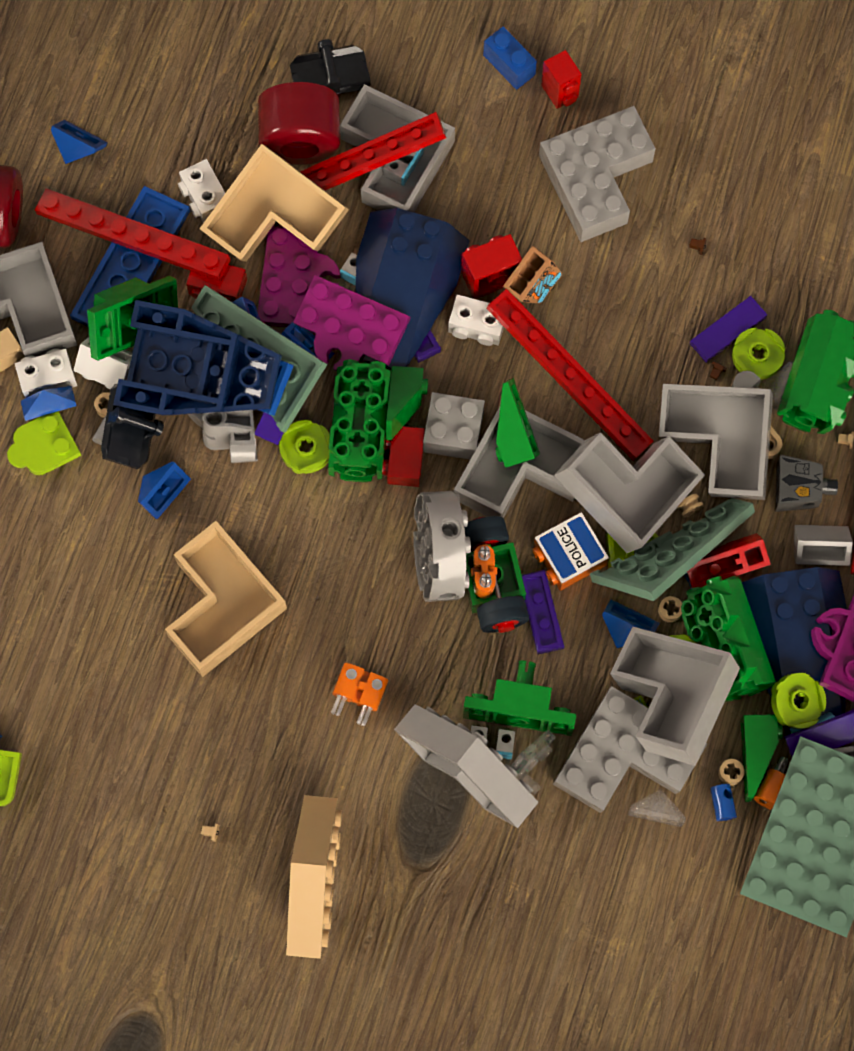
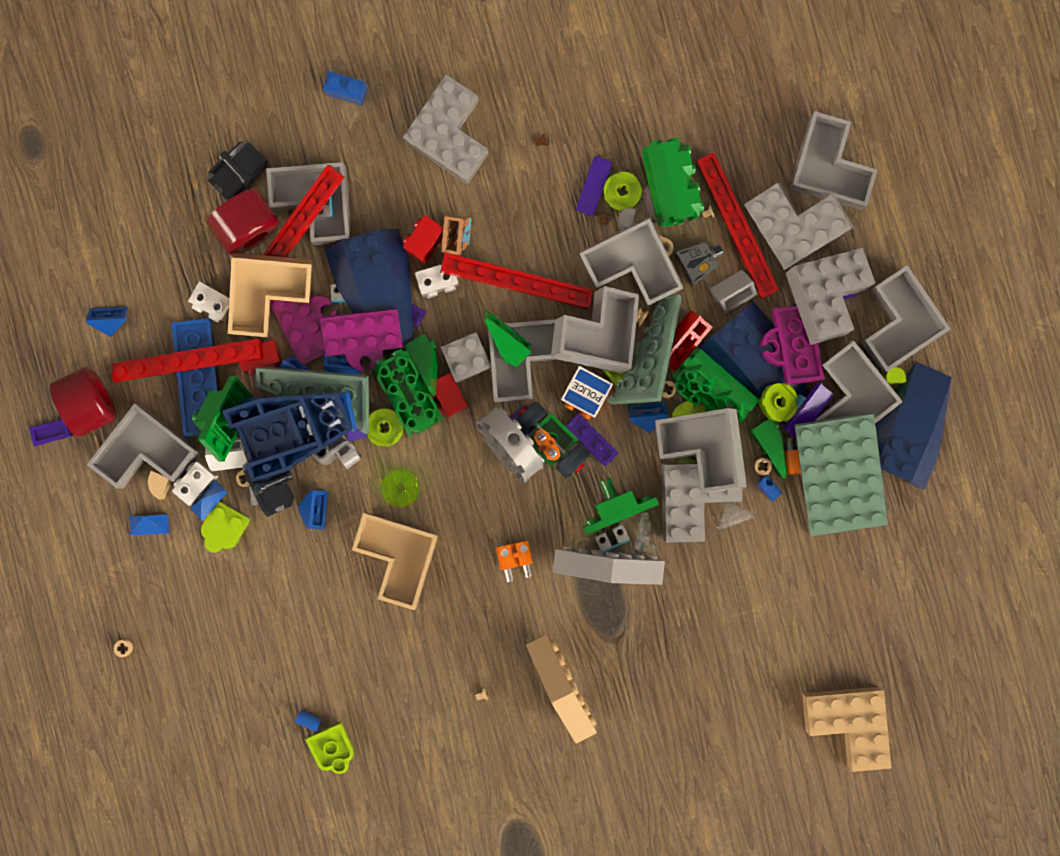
camera: 30 degrees left, 15 degrees up
(277, 542) = (406, 497): none -> clear neon green plate
(561, 79) = (388, 84): red brick -> none

